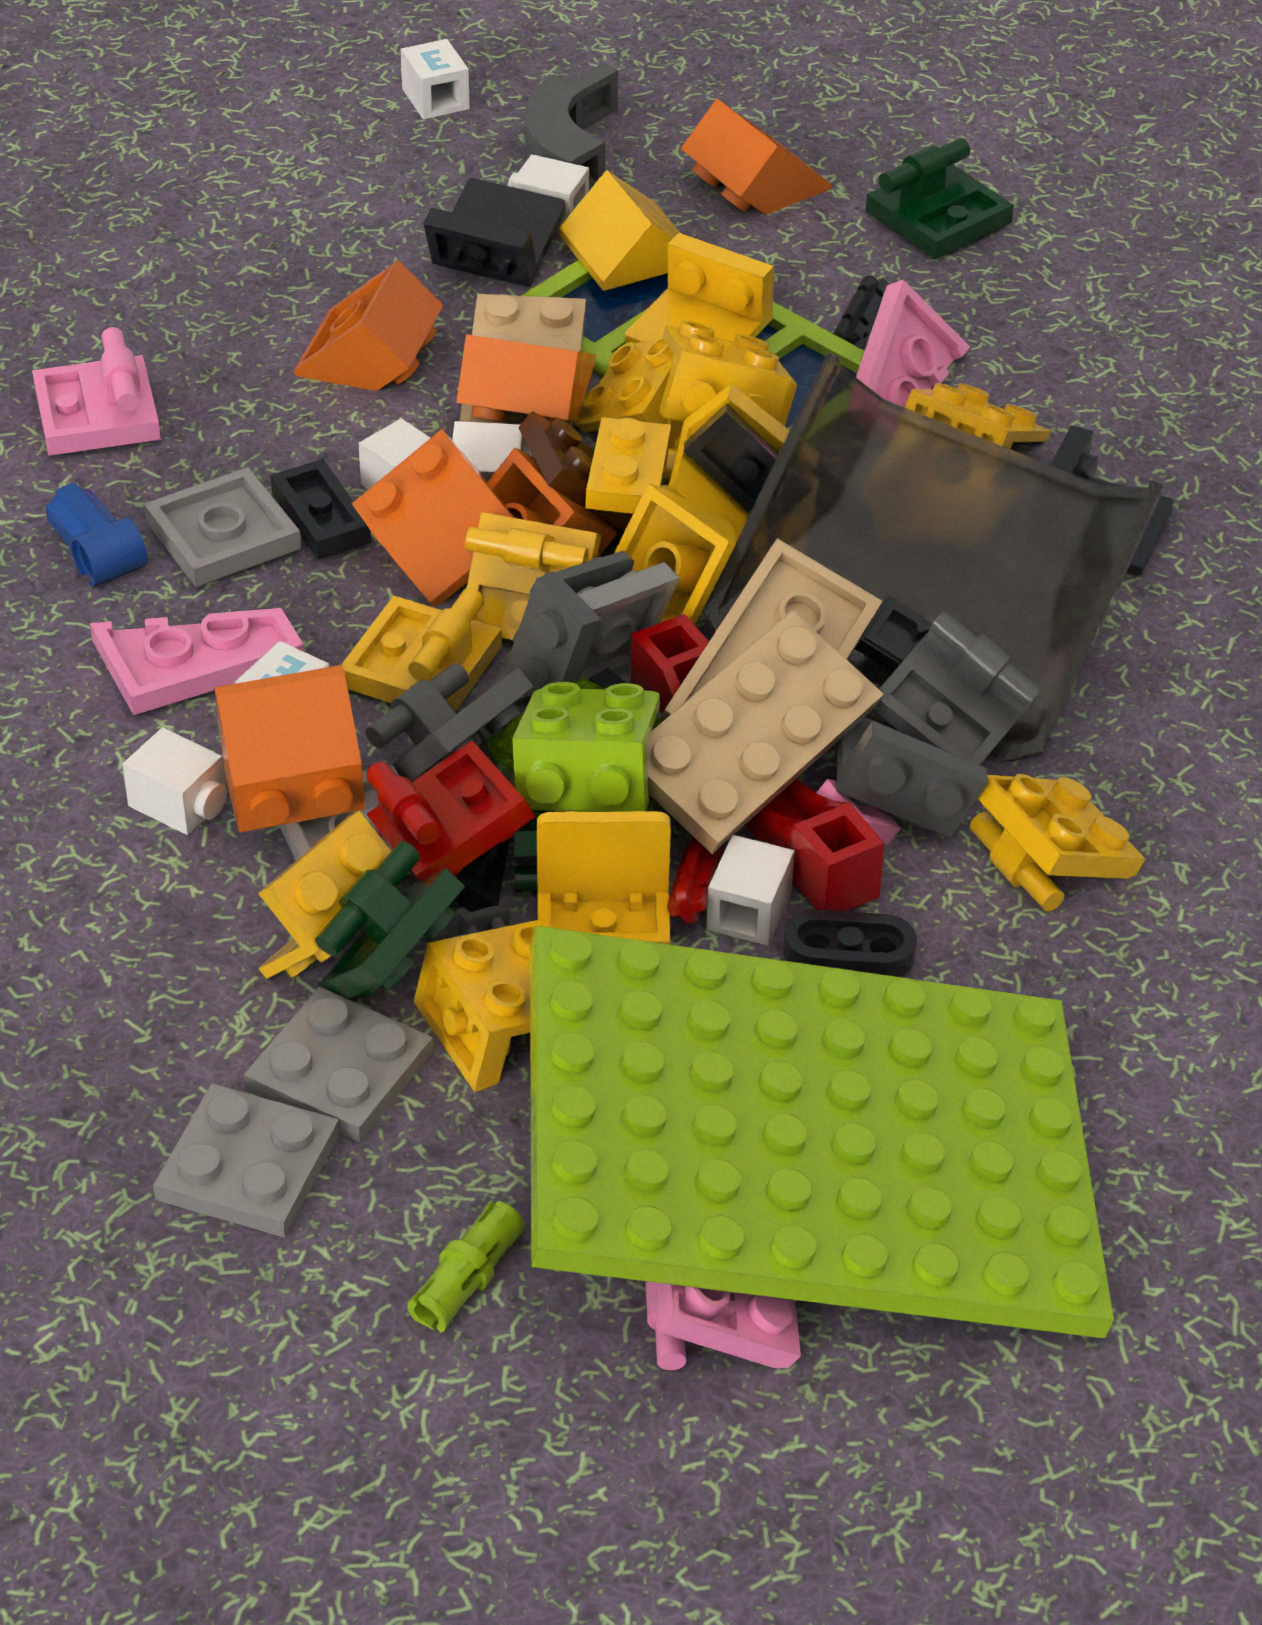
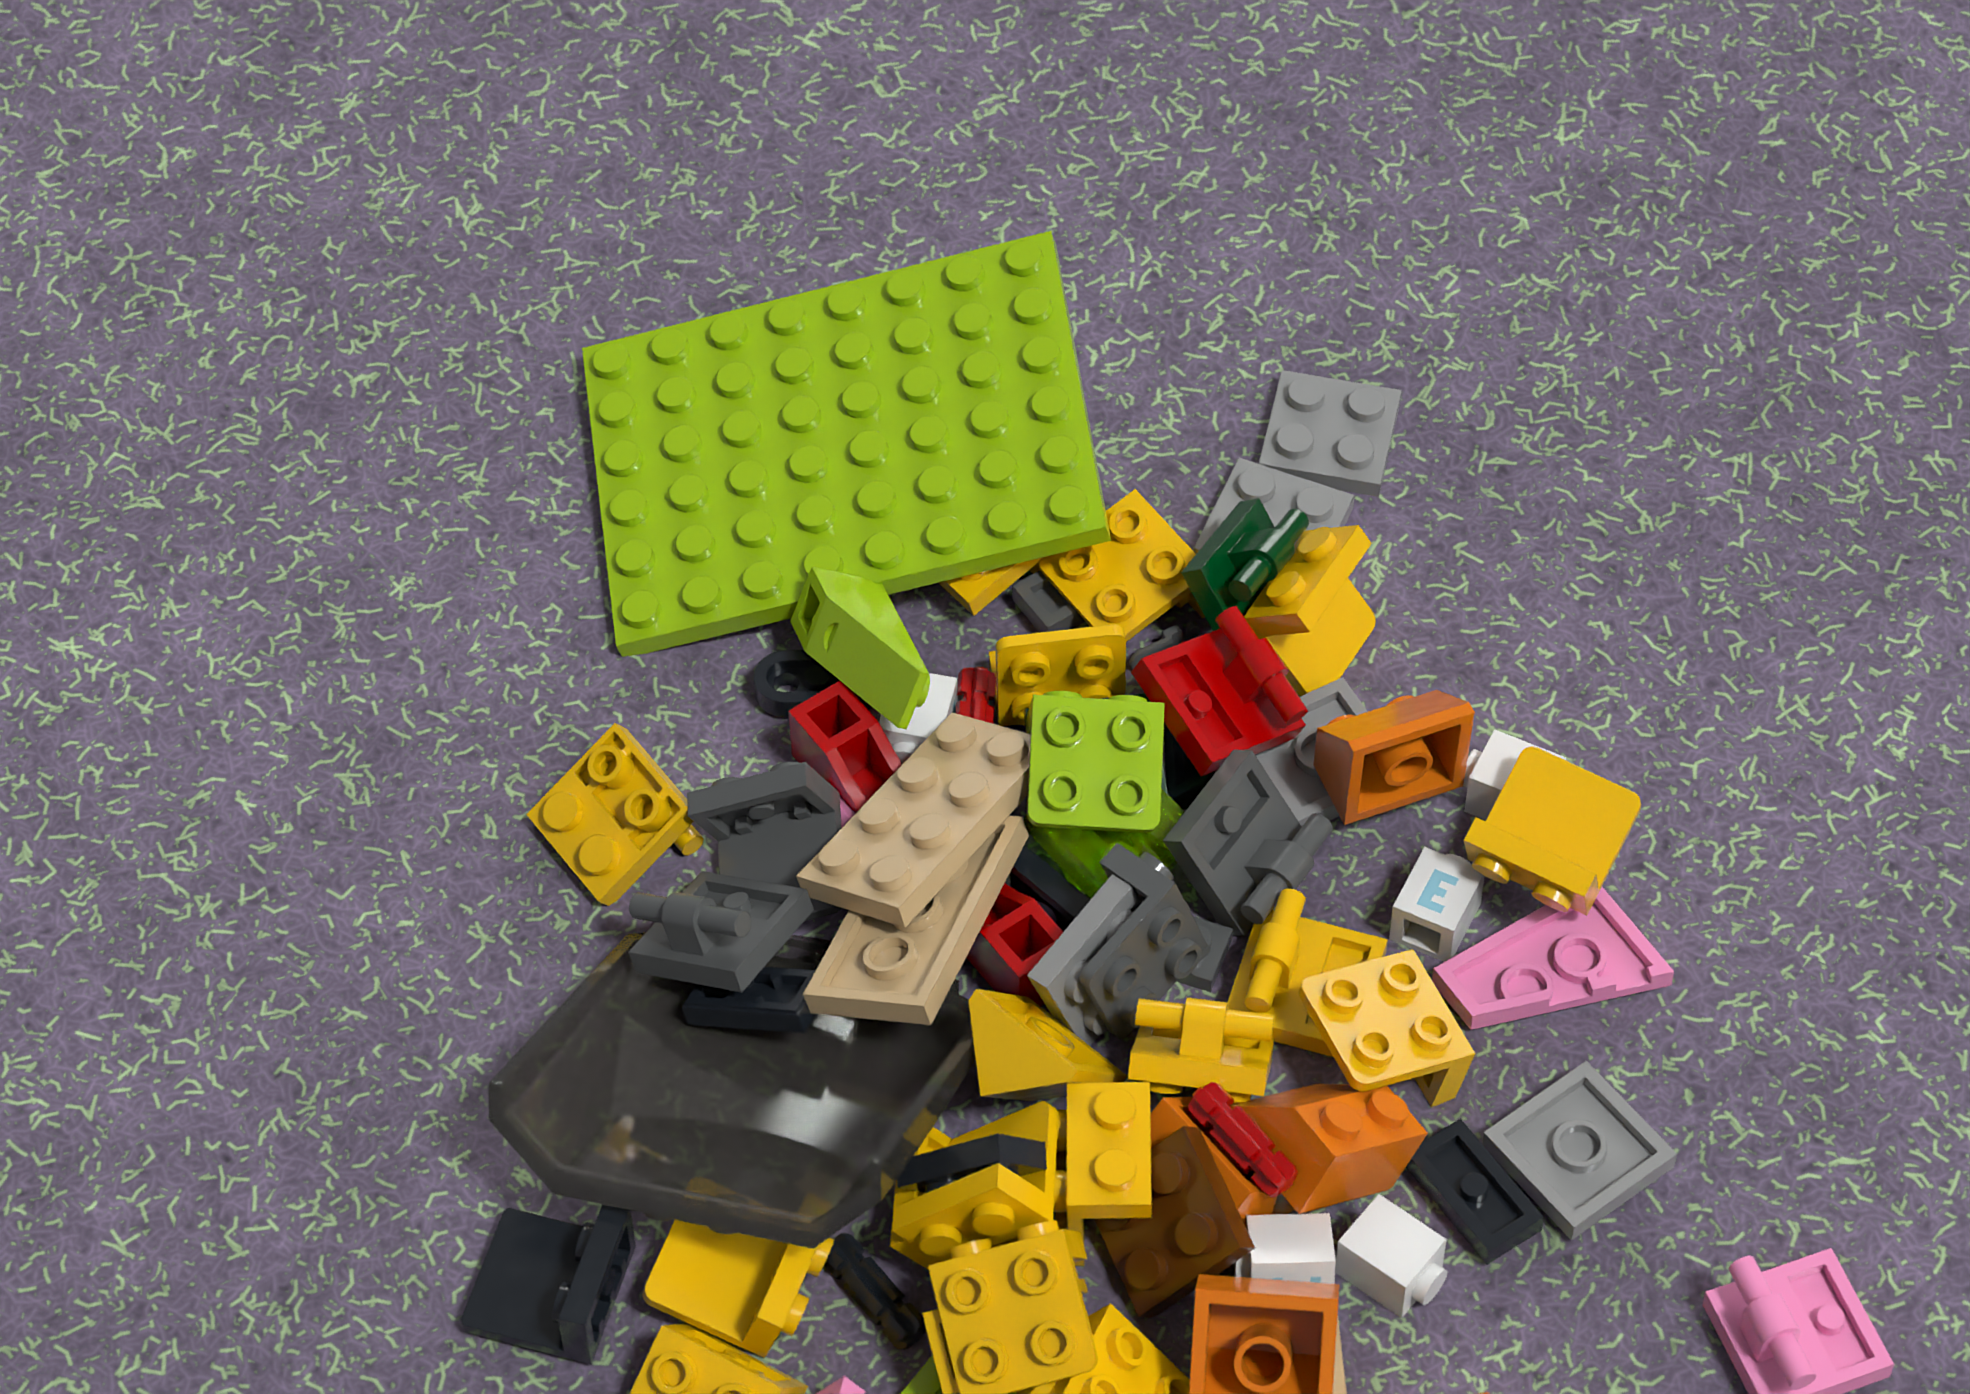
camera: 175 degrees right, 10 degrees up
(96, 538) = (1706, 1100): blue piece -> none
(173, 675) = (1553, 830): none -> yellow bracket
(359, 571) = (1389, 1026): none -> yellow bracket
(466, 1266) = (1121, 355): lime pin -> none
(512, 483) = (1243, 1139): none -> red axle
(808, 901) = (862, 641): none -> lime slope

